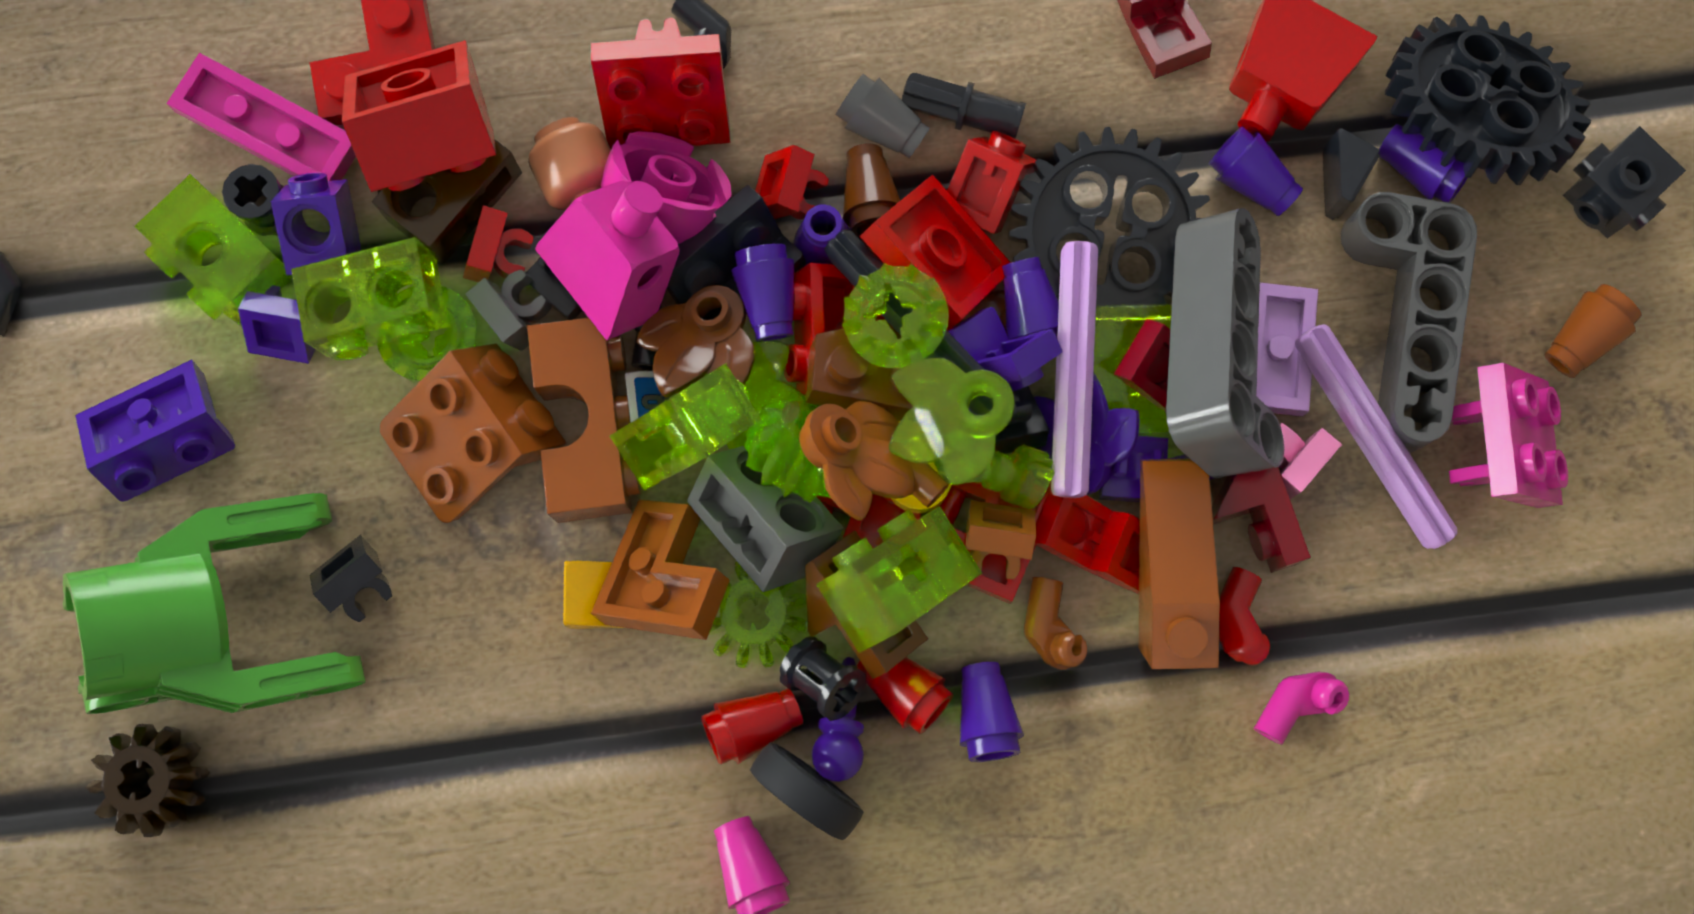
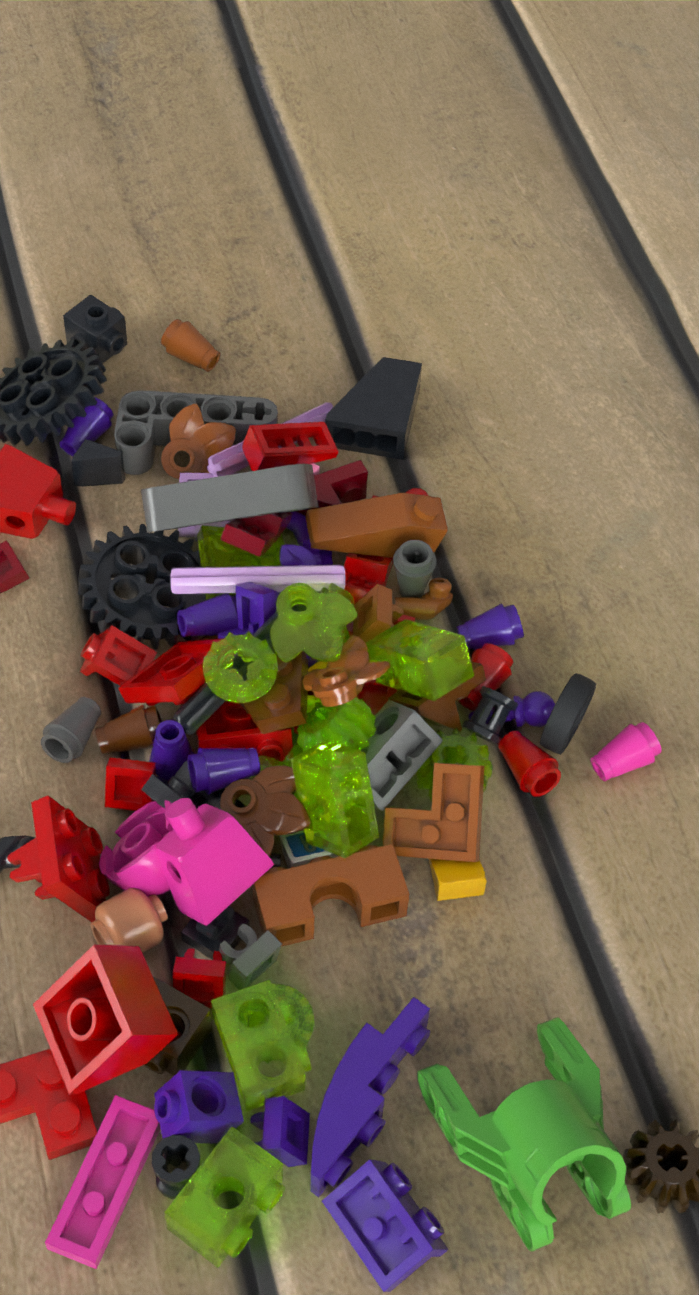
camera: 100 degrees left, 25 degrees down
(297, 409) = (351, 1104): none -> dark purple slope
(348, 573) = (477, 1044): black tile -> none
(467, 428) = (351, 974): dark orange bracket -> none
(962, 105) = (59, 680): black axle -> none
(1110, 600) = (414, 566): none -> dark grey cone
(1255, 171) = (97, 514): dark purple cone -> none
(1298, 697) = (444, 475): dark pink arm -> none
(1359, 442) = (263, 441): none -> red slope
(1370, 320) = (195, 438): none -> dark orange plate
(1437, 613) = (378, 410): none -> black slope
(1519, 437) = (283, 363): dark pink plate -> none

